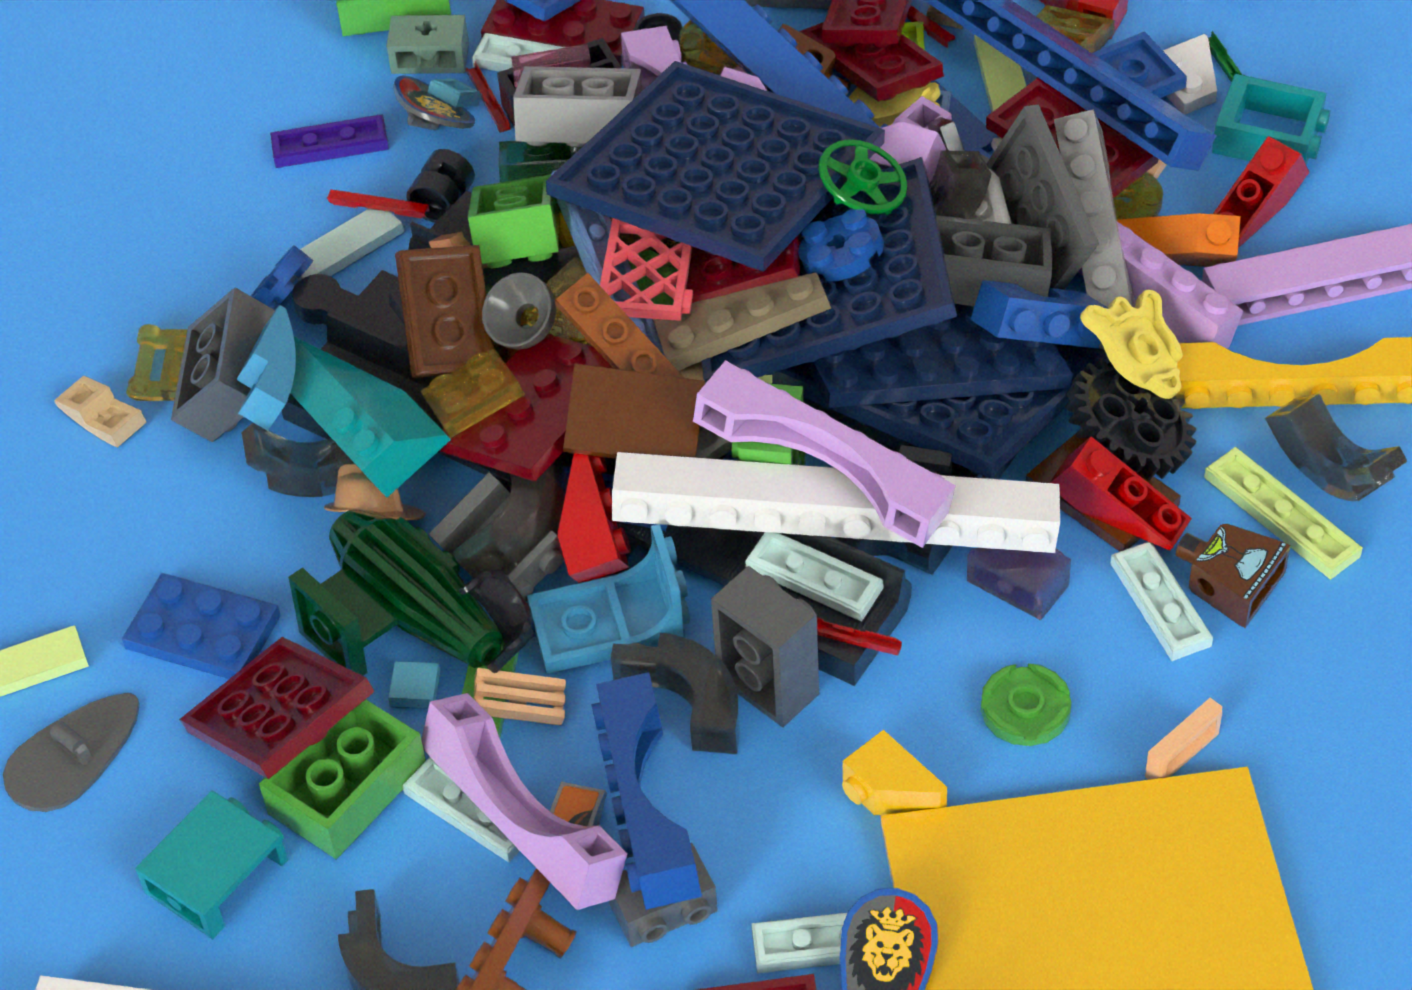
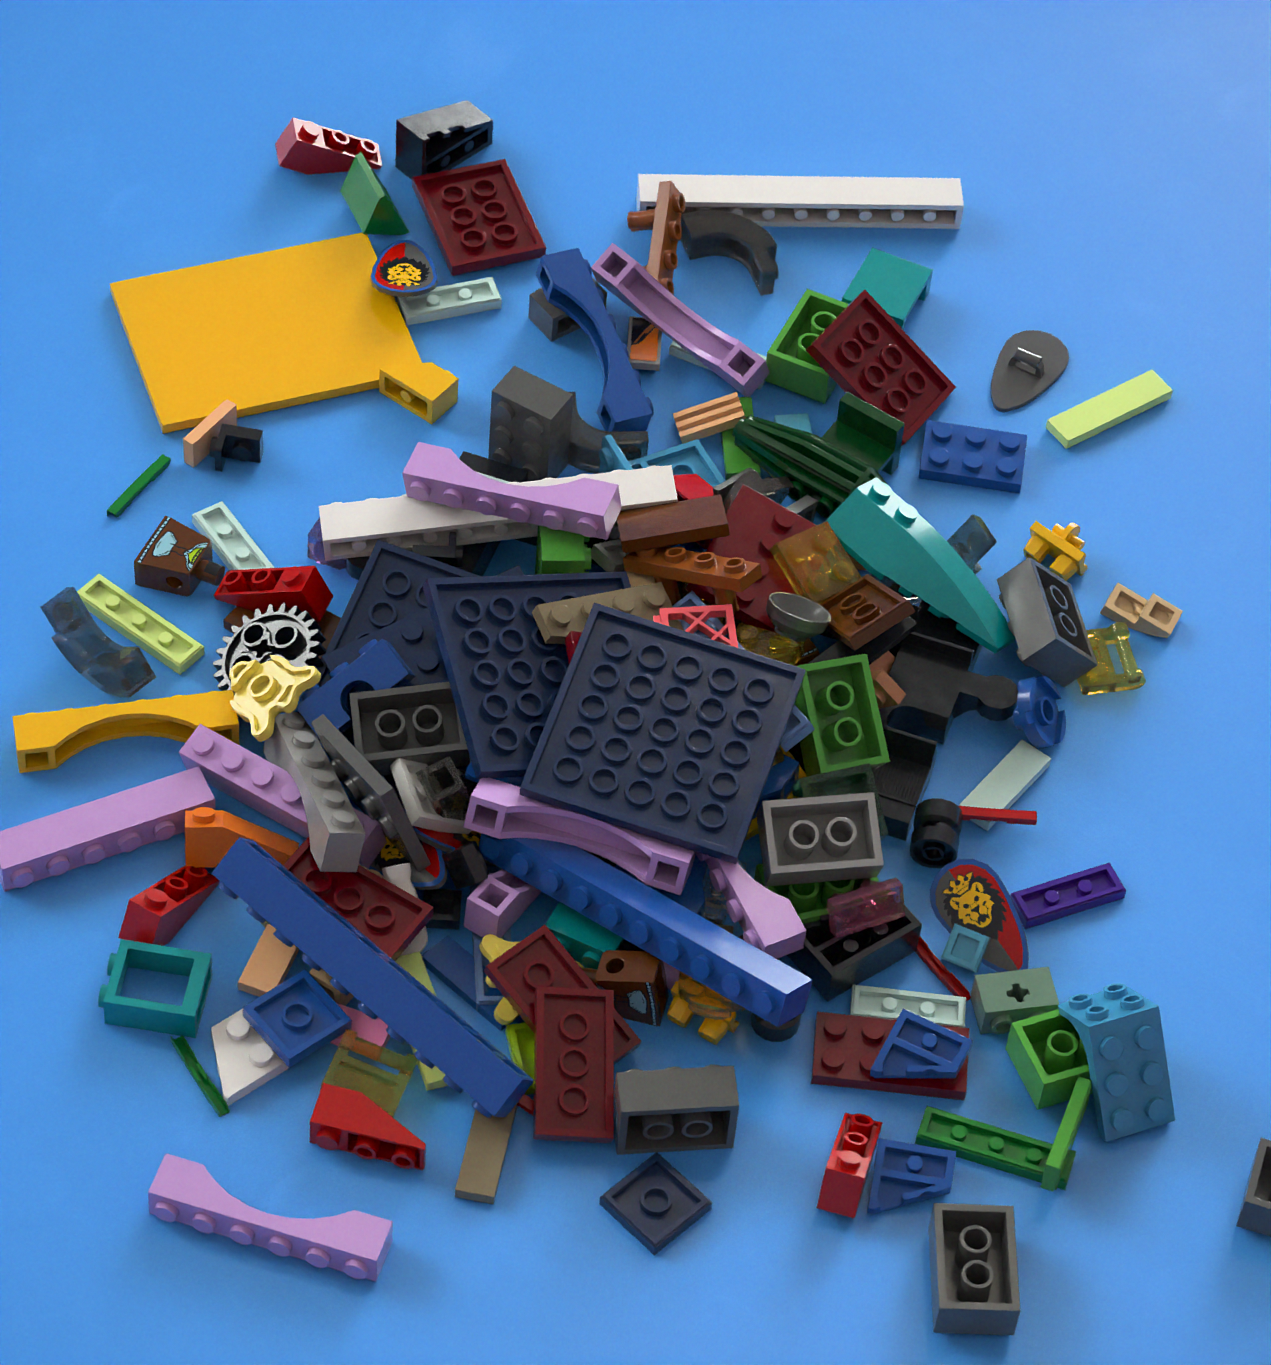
camera: 160 degrees right, 0 degrees up
(157, 481) = (1060, 544): none -> yellow hips
(269, 371) = (995, 575): dark azure slope -> none
(506, 609) = (726, 454): black helmet -> none
(853, 231) = (537, 650): blue plate -> none
(859, 638) = (498, 469): red piece -> none
(862, 176) = (527, 720): green wheel -> none
(1026, 704) = (330, 461): bright green tile -> none
(1146, 722) = (236, 443): none -> black bracket
(1280, 695) = (139, 485): none -> green piece

